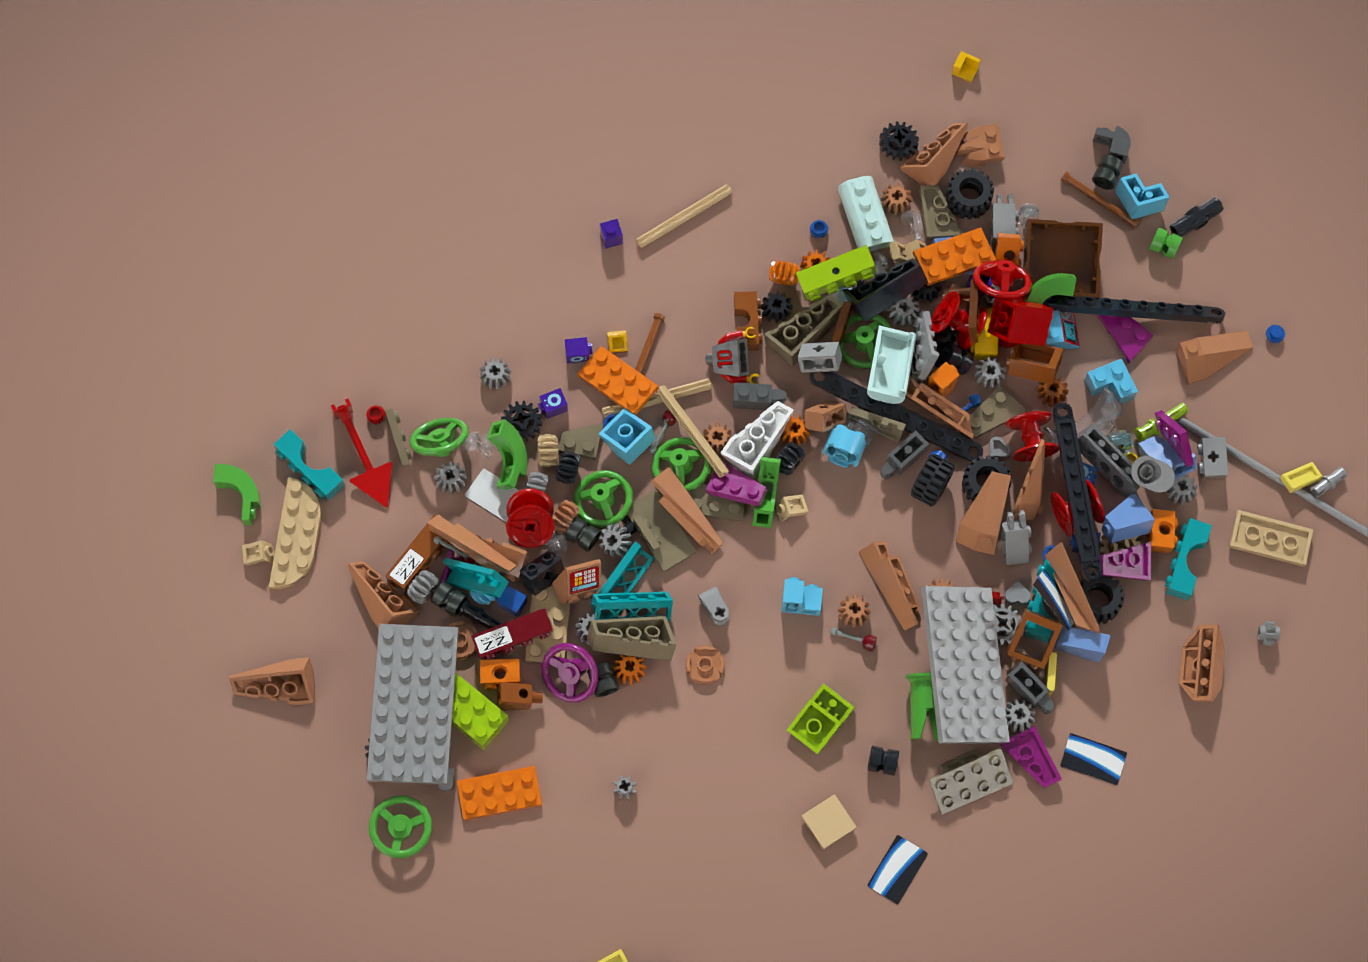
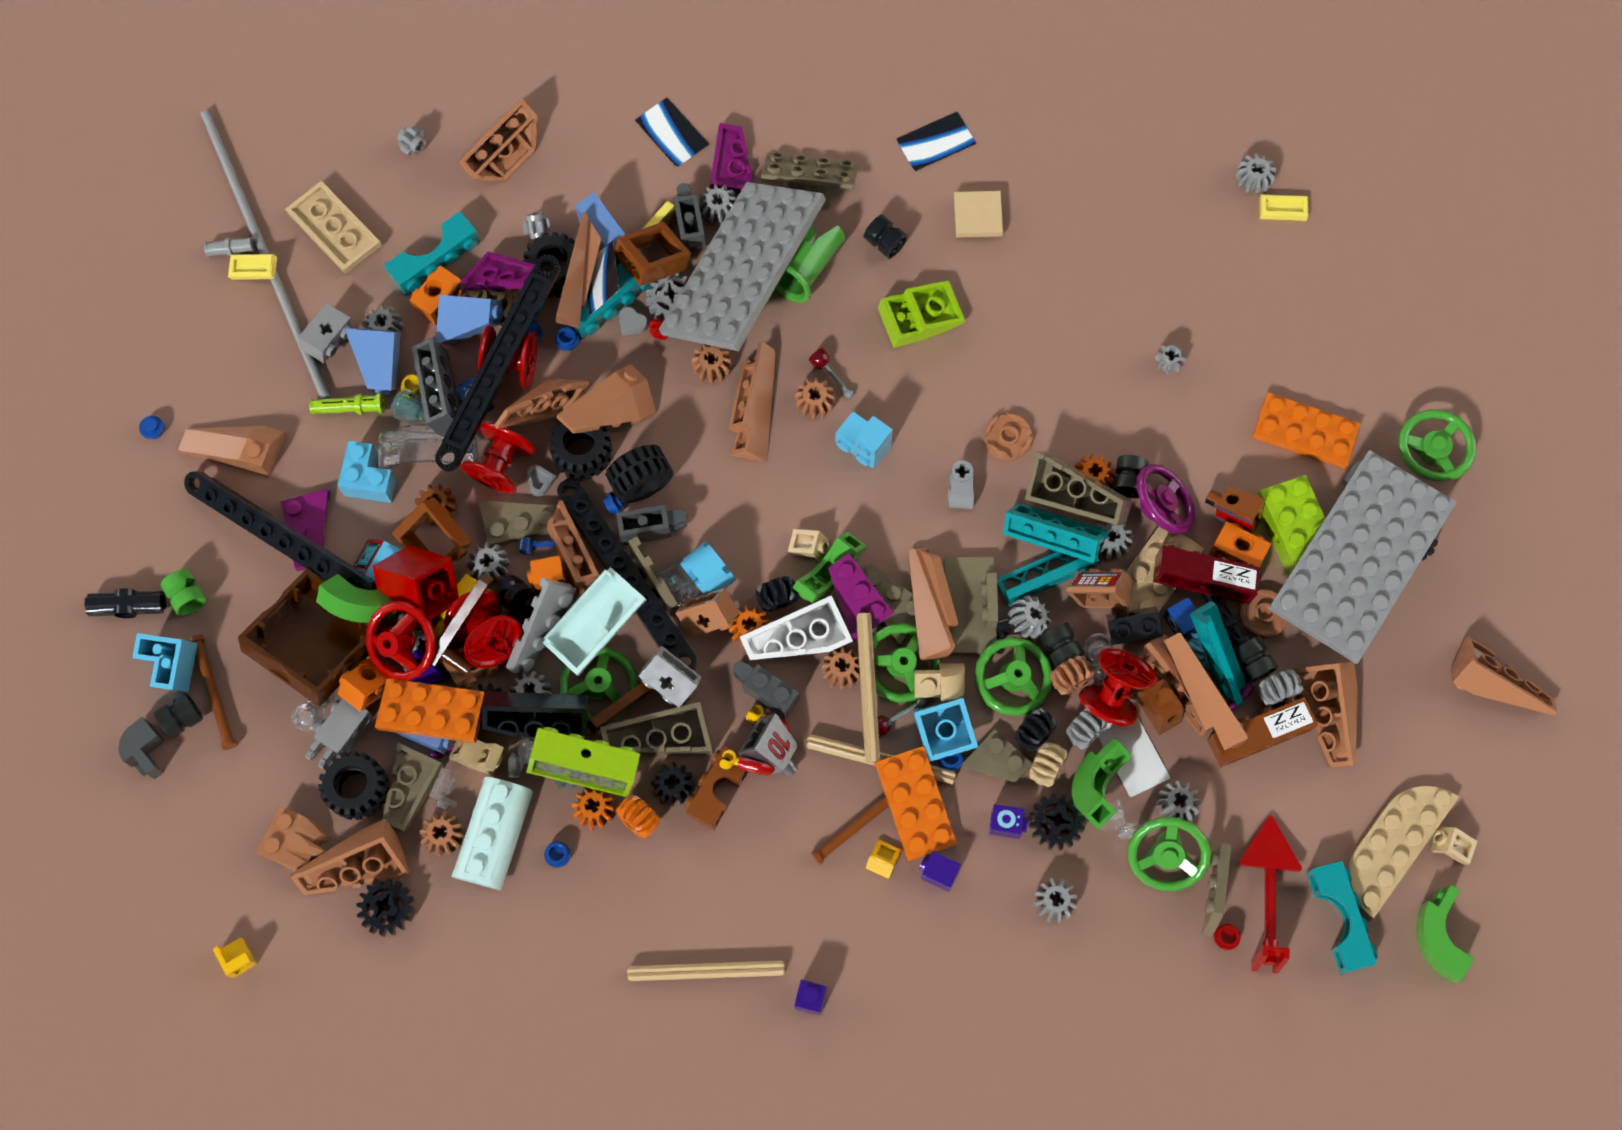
camera: 145 degrees left, 0 degrees up
(494, 528) = (1161, 705): none -> dark orange torso
(642, 462) = (945, 683): none -> tan brick
(1015, 539) = (597, 362): light grey hinge -> none
(1132, 621) = (536, 224): none -> light grey gear
(1152, 474) = (406, 336): light grey piece -> none
(1175, 435) = (350, 360): magenta wing -> none

